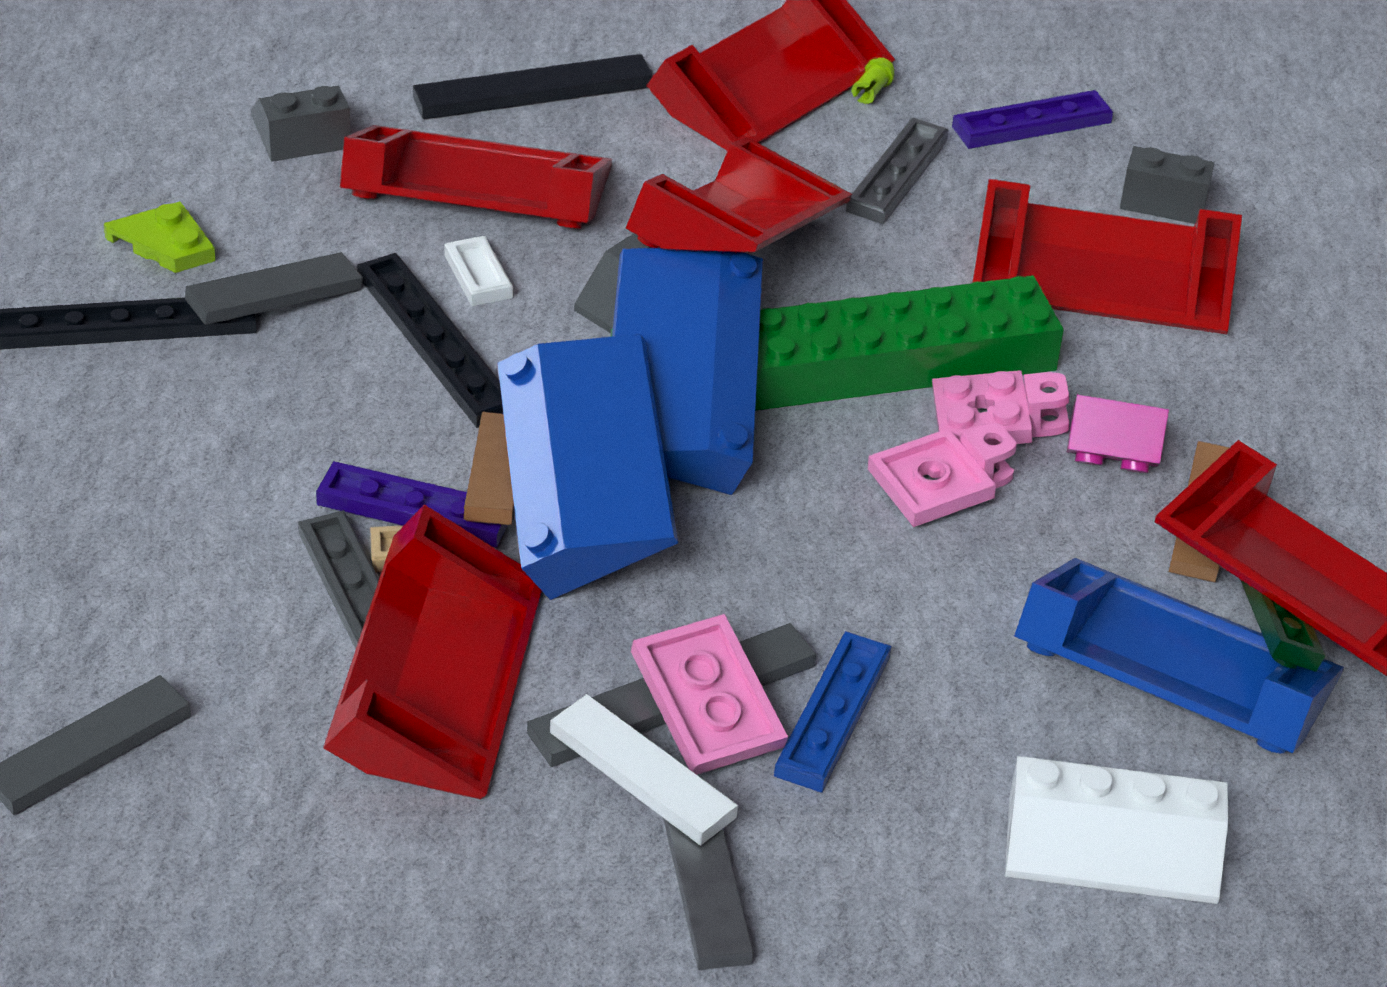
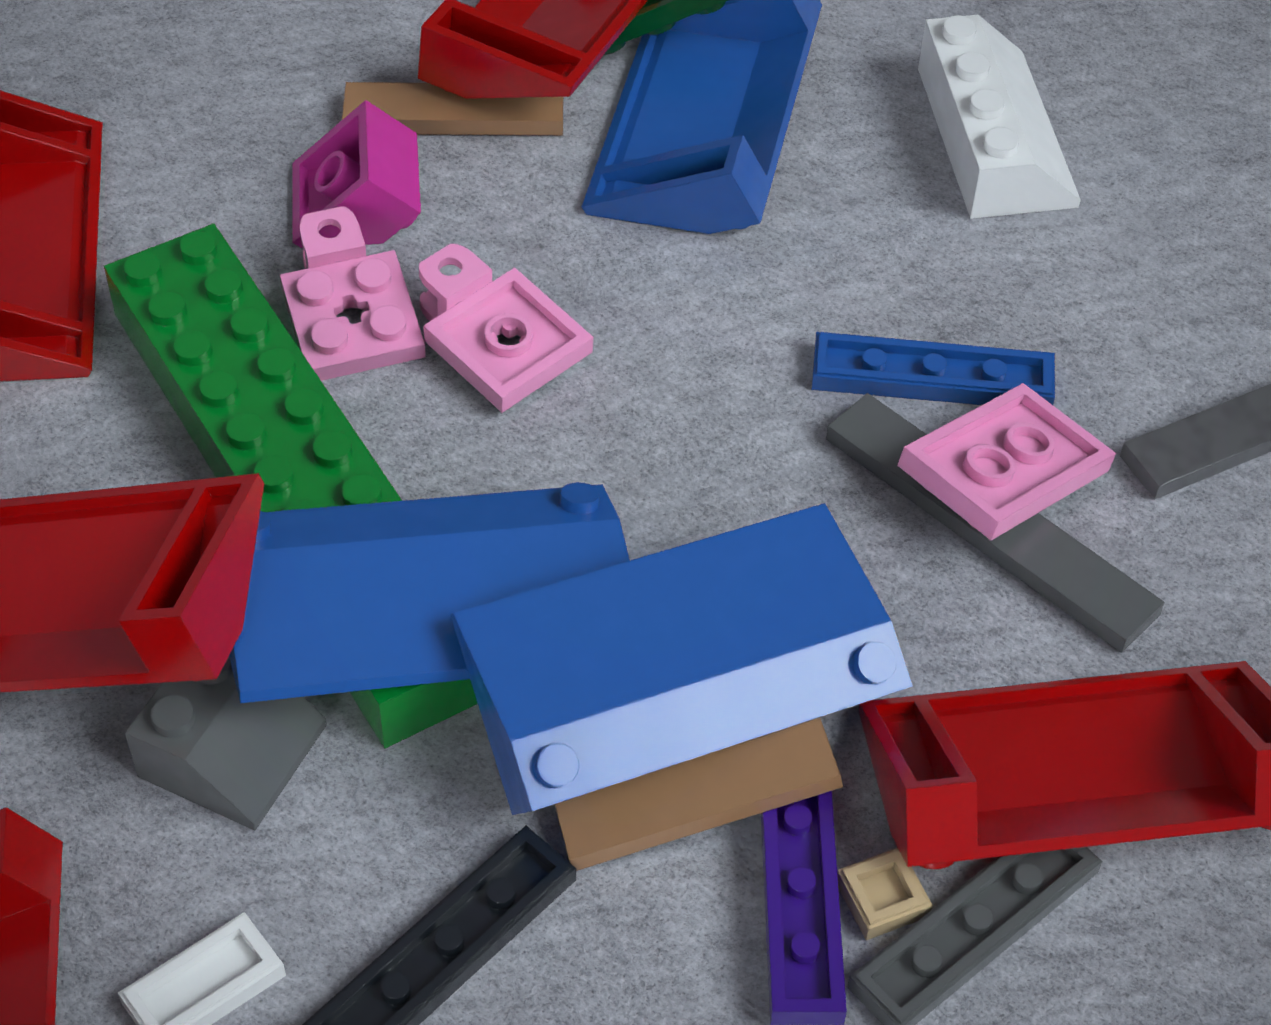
camera: 105 degrees left, 10 degrees up
(644, 769) = (1147, 503): white tile -> none

